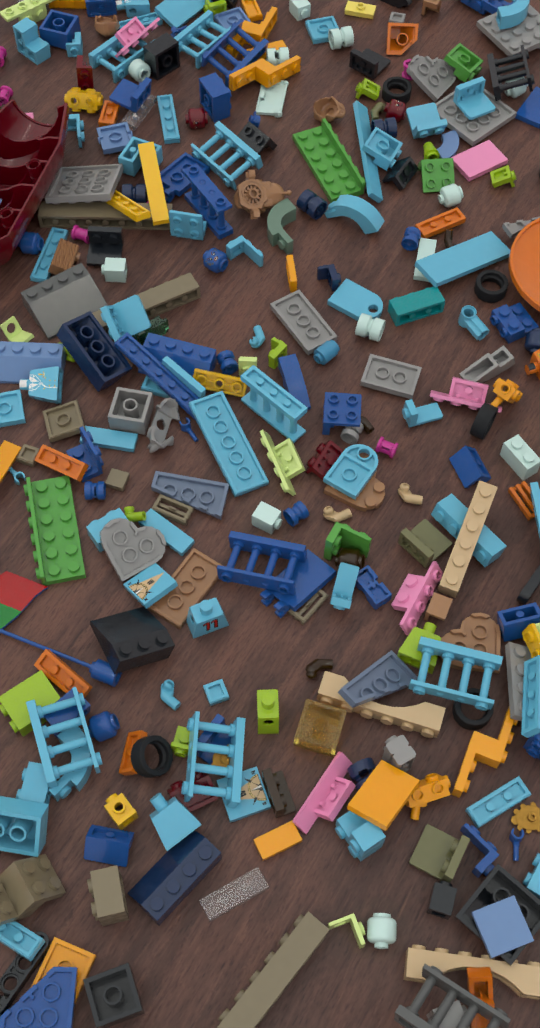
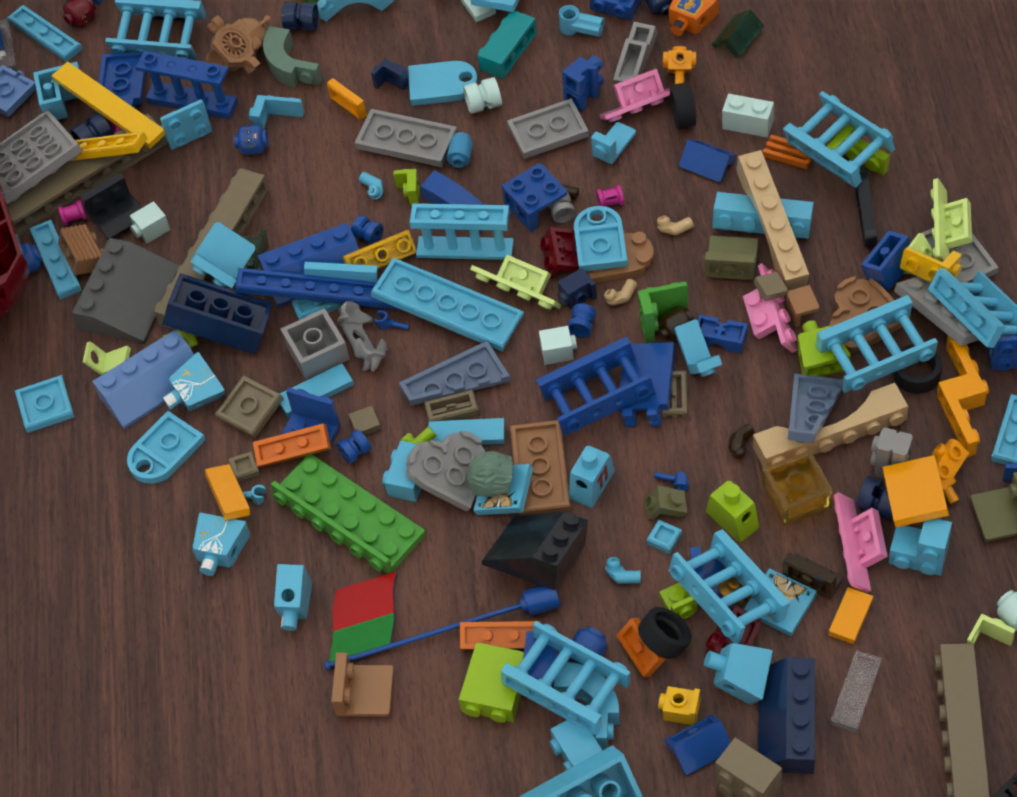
camera: 30 degrees left, 5 degrees down
(146, 569) = (490, 474): none -> sand green hair
(236, 671) = (665, 501): none -> olive bracket
(245, 363) = (392, 218): yellowish green bracket -> none
(258, 664) = (679, 479): none -> blue hand
(311, 490) = (576, 288): none -> dark blue brick
(426, 581) = (770, 286): none -> dark tan tile
(437, 360) = (582, 81): none -> blue hips

